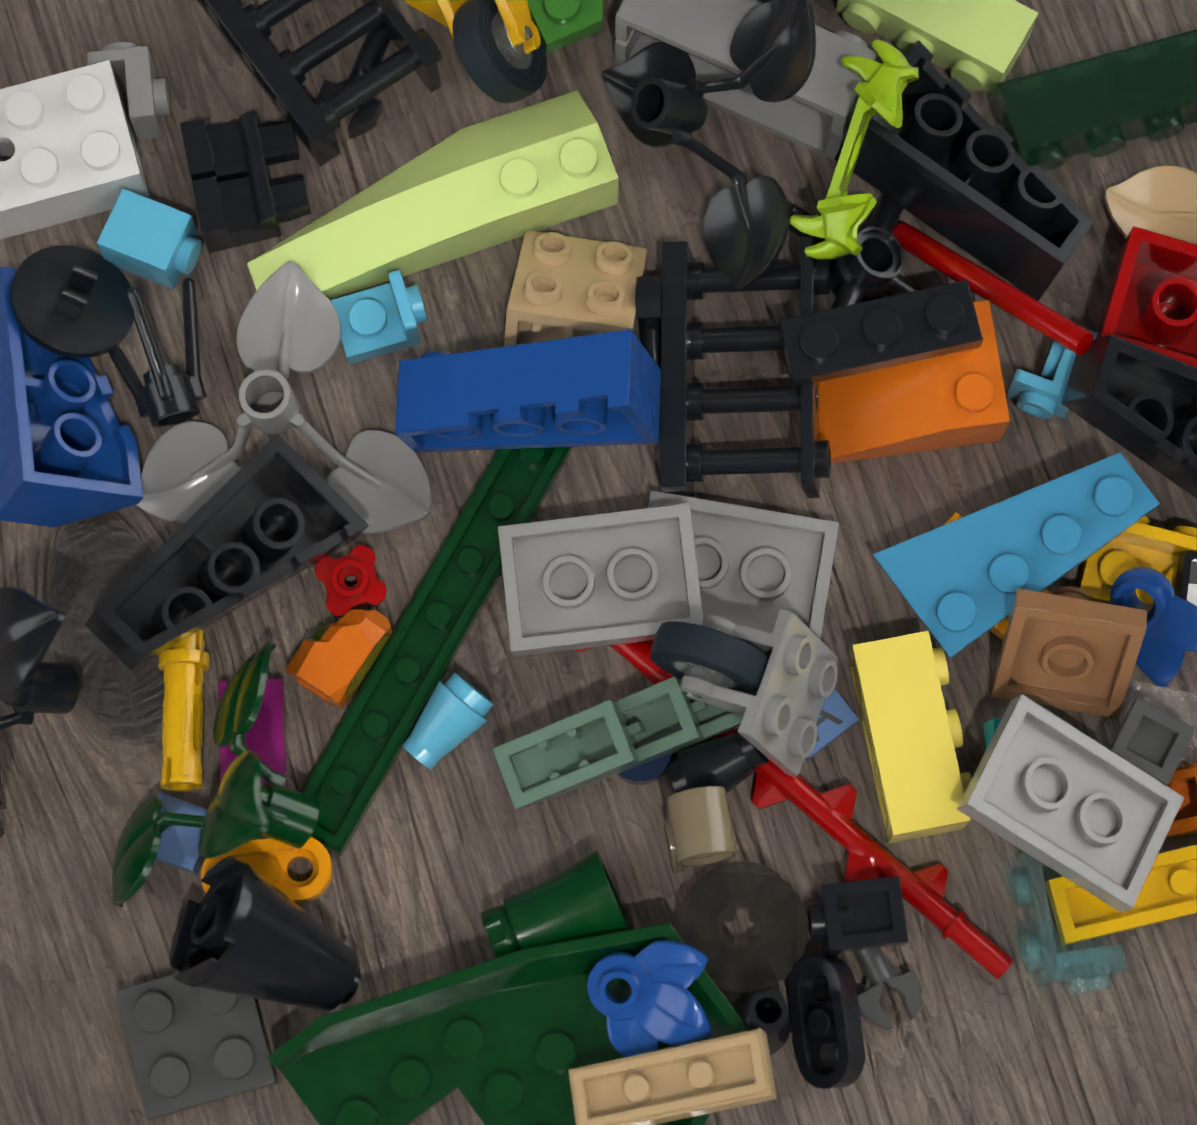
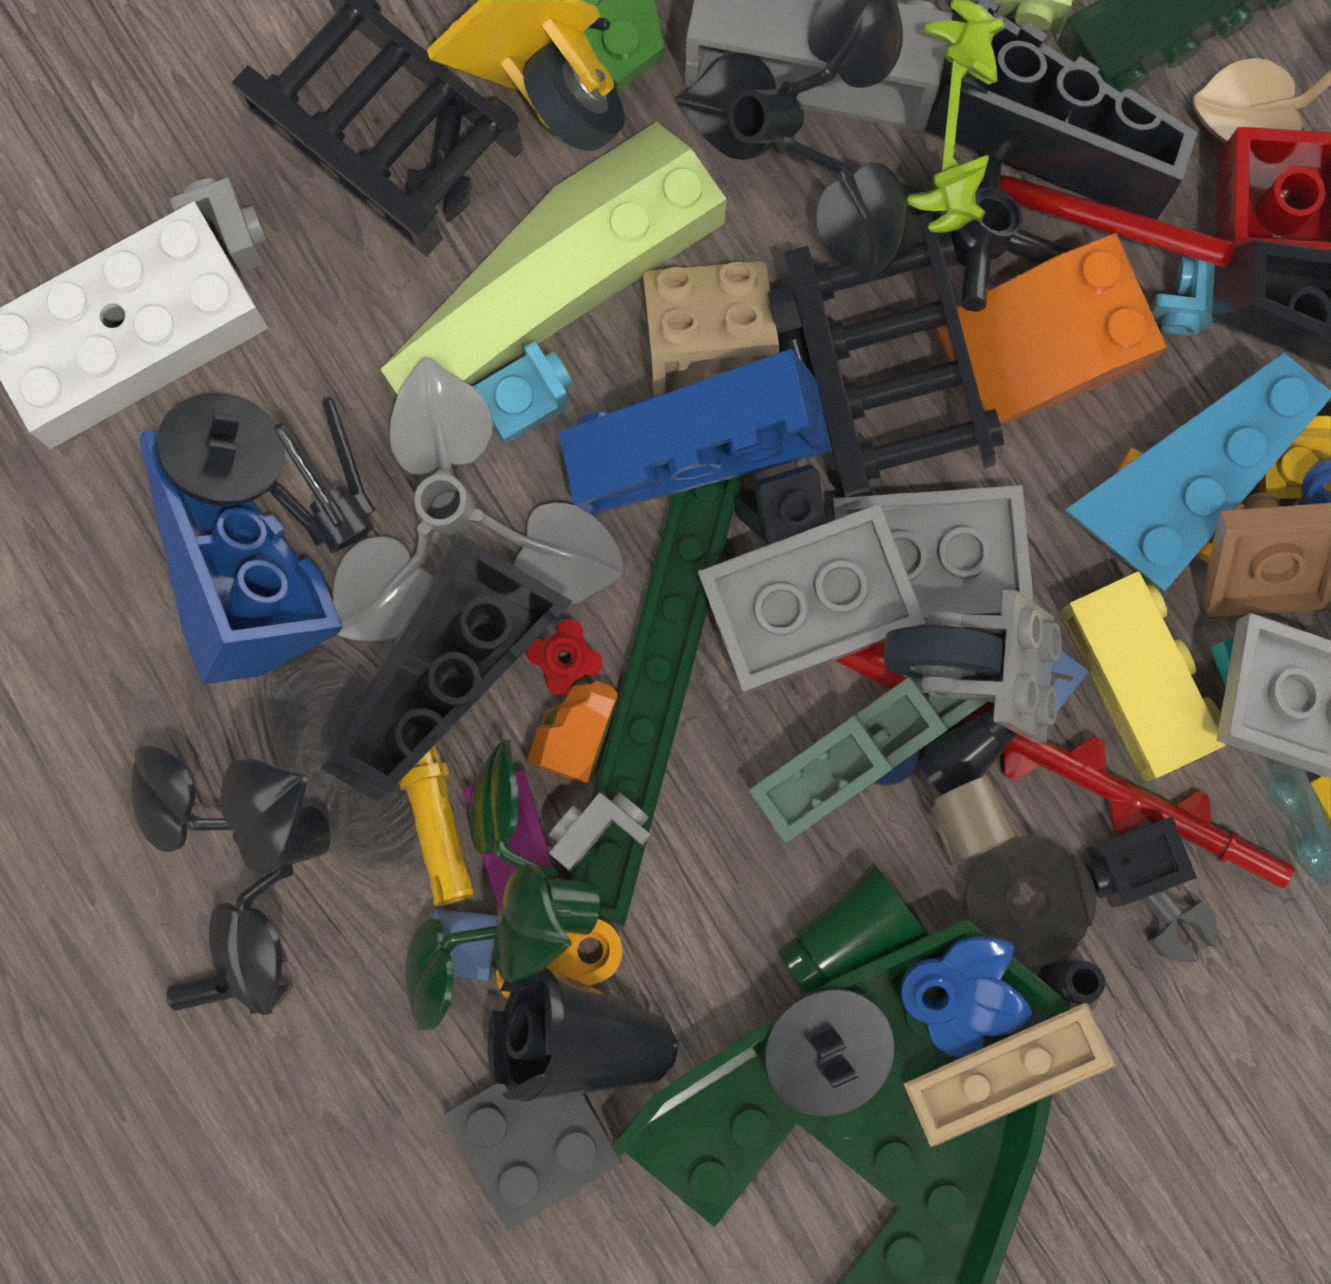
camera: 15 degrees left, 5 degrees up
(150, 239) = (280, 369): medium azure brick -> none
(233, 181) = (346, 291): black hips -> none
(320, 747) = (580, 831): none -> light grey bracket
(447, 720) = (694, 770): medium azure cone -> none
(502, 1019) = (828, 1051): none -> black piece
(598, 482) = (783, 504): none -> black bracket
(826, 1022) = (1133, 971): black plate -> none
(880, 333) = (1023, 291): black plate -> none

